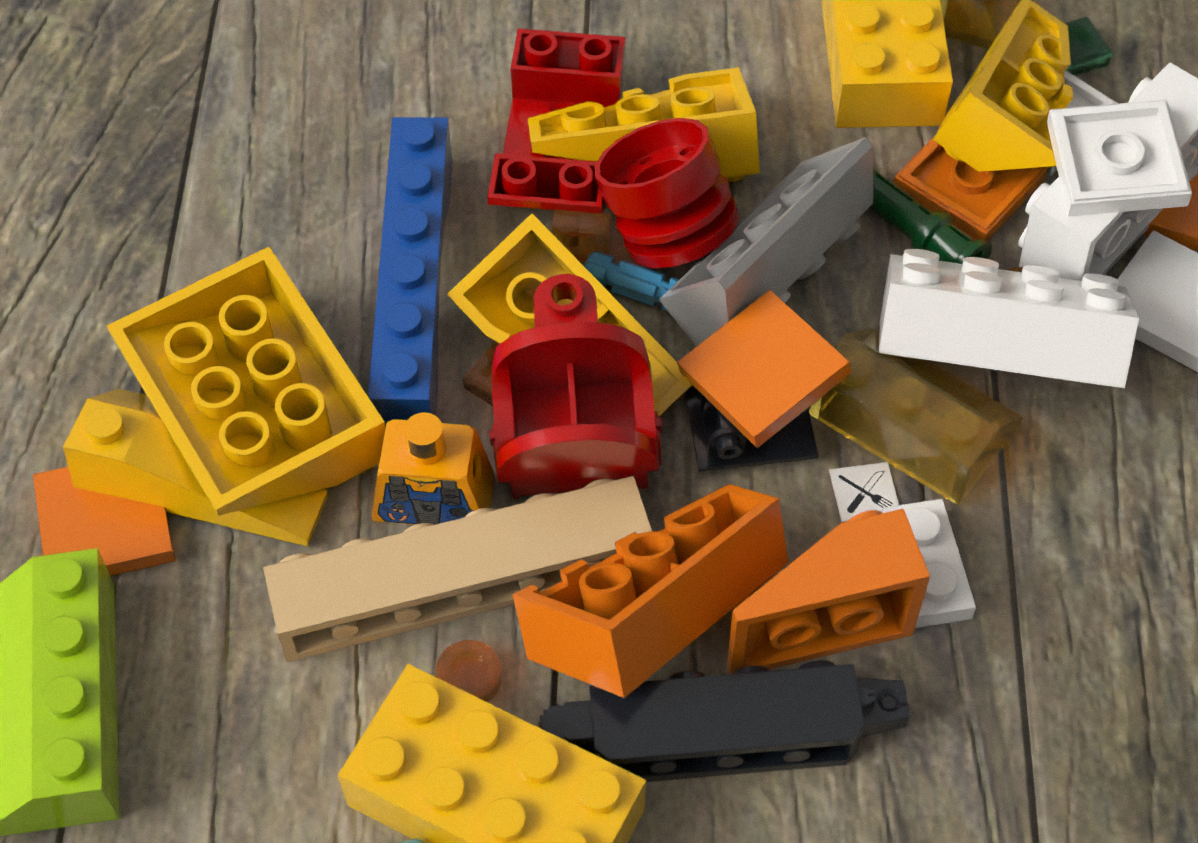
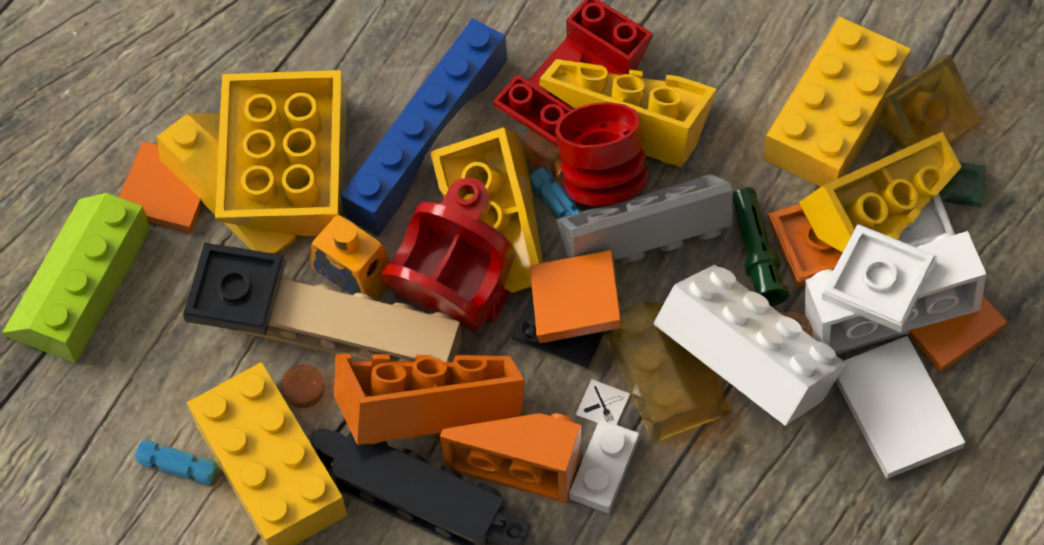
camera: 35 degrees right, 5 degrees up
(303, 589) = (234, 288): none -> black tile

